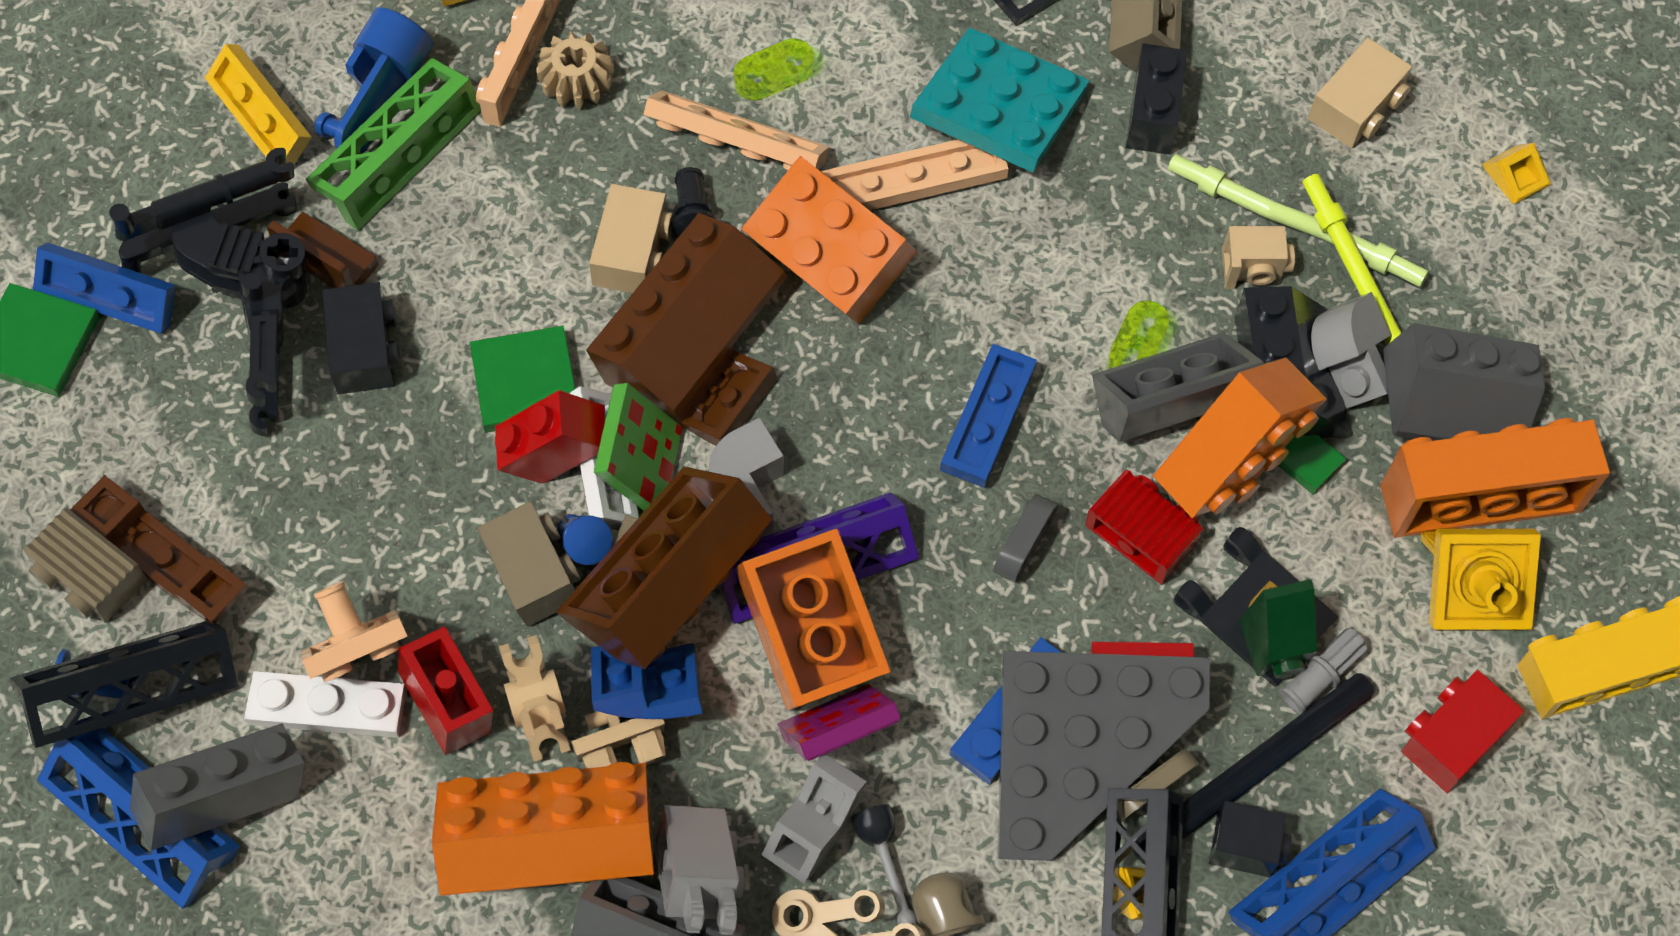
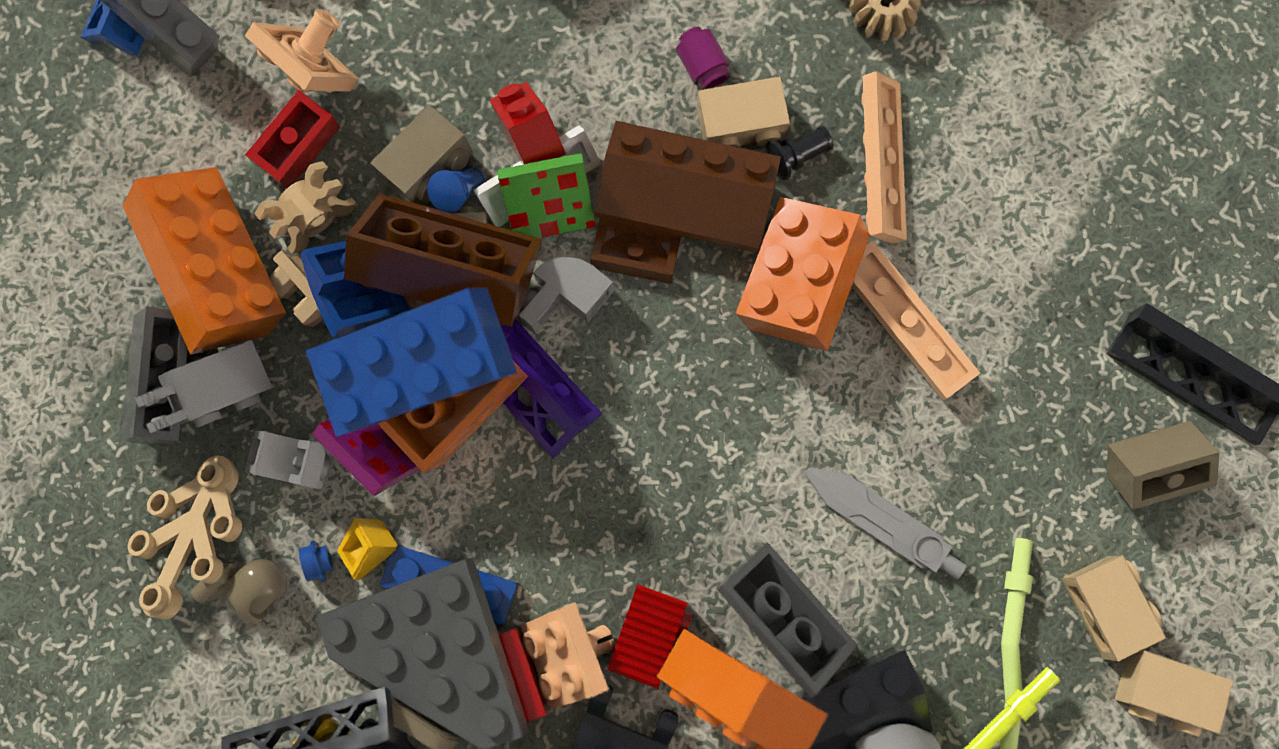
camera: 75 degrees right, 15 degrees up
(325, 706) = (266, 81): white plate -> none
(519, 372) = (589, 87): green tile -> none
(548, 254) = (703, 58): none -> magenta brick
(773, 69) = (965, 162): clear neon green beam -> none
(778, 612) = (411, 360): none -> blue brick
(876, 828) = (307, 509): hinge -> none
(937, 839) = (315, 561): none -> blue plate
(942, 780) = (365, 546): none -> yellow slope
(988, 415) = (702, 467): blue plate -> none
(1000, 99) = (1015, 366): teal plate -> none
(1025, 538) = (600, 539): dark grey beam -> none
(1107, 274) = (885, 521): none -> light grey piece
(1128, 333) = (827, 560): clear neon green beam -> none
(1138, 600) = (566, 655): none -> light nougat plate
(1156, 99) = (1079, 504): black brick -> none
(1256, 255) = (955, 649): tan brick -> none
(1265, 110) = (1115, 607): none -> tan brick

